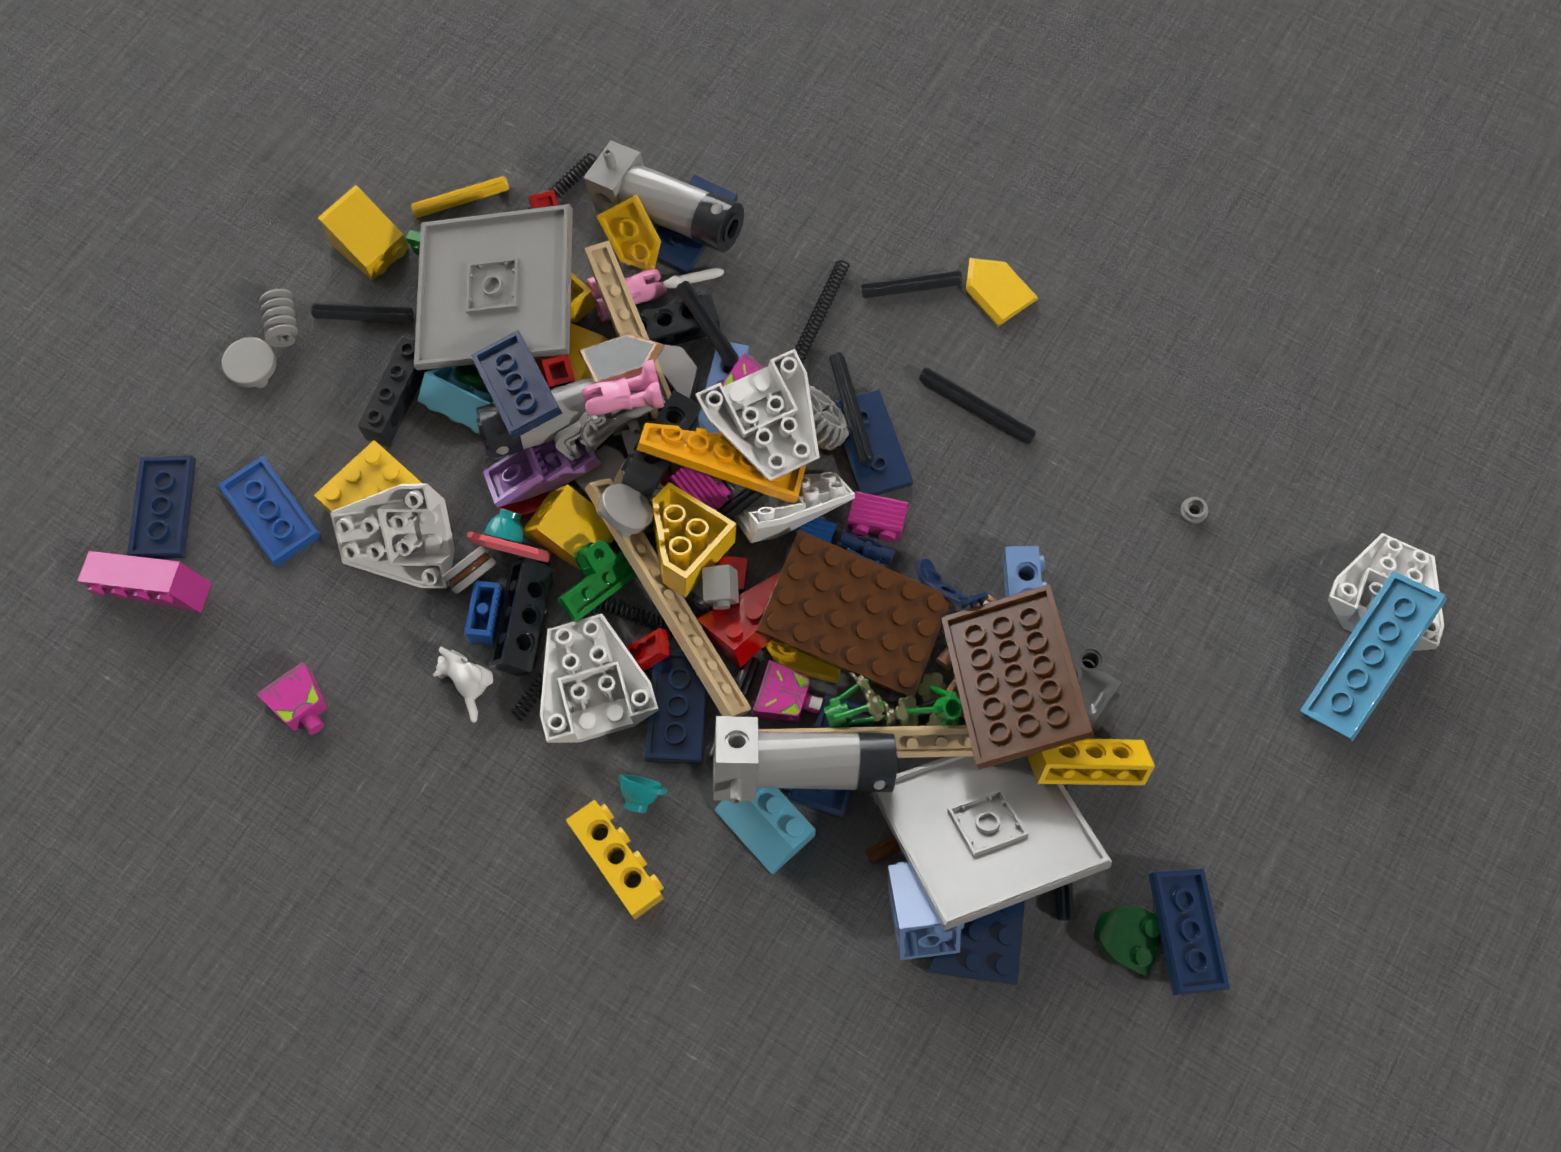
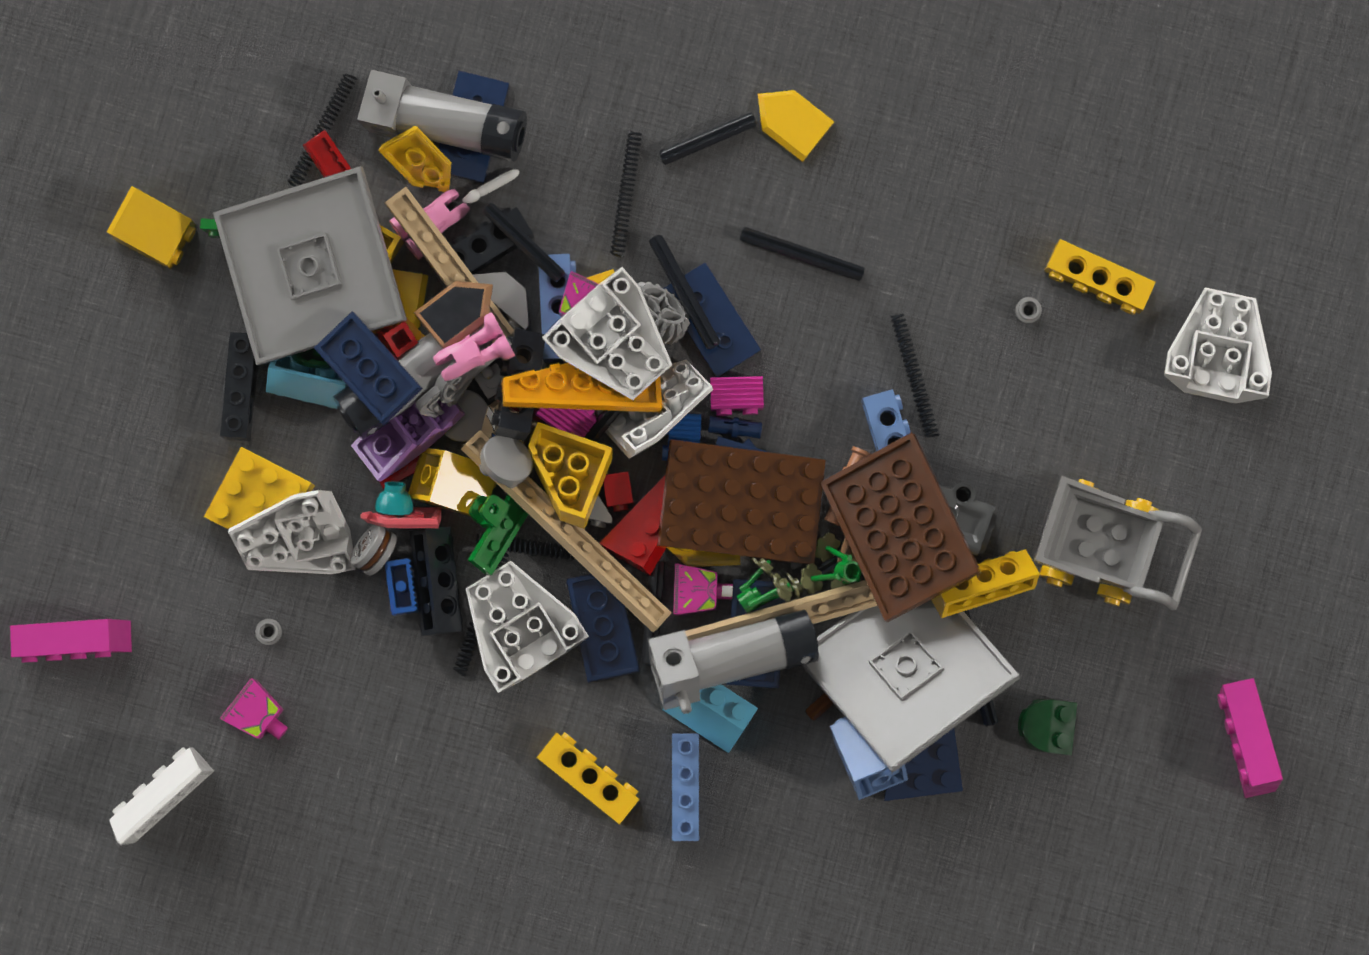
camera: 20 degrees left, 15 degrees up
(162, 507) = (56, 561): dark blue plate -> none
(167, 759) = (159, 796): none -> white slope
(249, 362) = (84, 391): light grey tile -> none
(269, 511) = (159, 536): blue tile -> none
(278, 317) = (96, 338): light grey piece -> none
(337, 619) = (260, 629): none -> light grey plate
(362, 312) = (175, 309): black axle -> none
(460, 196) = (229, 155): yellow axle -> none
(468, 677) = (405, 650): white animal -> none
(639, 792) = (592, 712): teal piece -> none
(650, 648) = (564, 582): red plate -> none
(714, 896) = (685, 787): none -> medium blue brick
(720, 586) = (614, 511): light grey brick -> none
(929, 577) = (802, 445): dark blue piece -> none
(1064, 539) = (907, 362): none -> black piece
(1188, 931) = (1098, 707): dark blue plate -> none
(1236, 750) = (1108, 543): none -> light grey piece
(1289, 495) = (1114, 274): none -> yellow brick
(1357, 1013) = (1250, 738): none -> dark pink wedge
(1373, 655) = (1213, 418): dark azure plate -> none

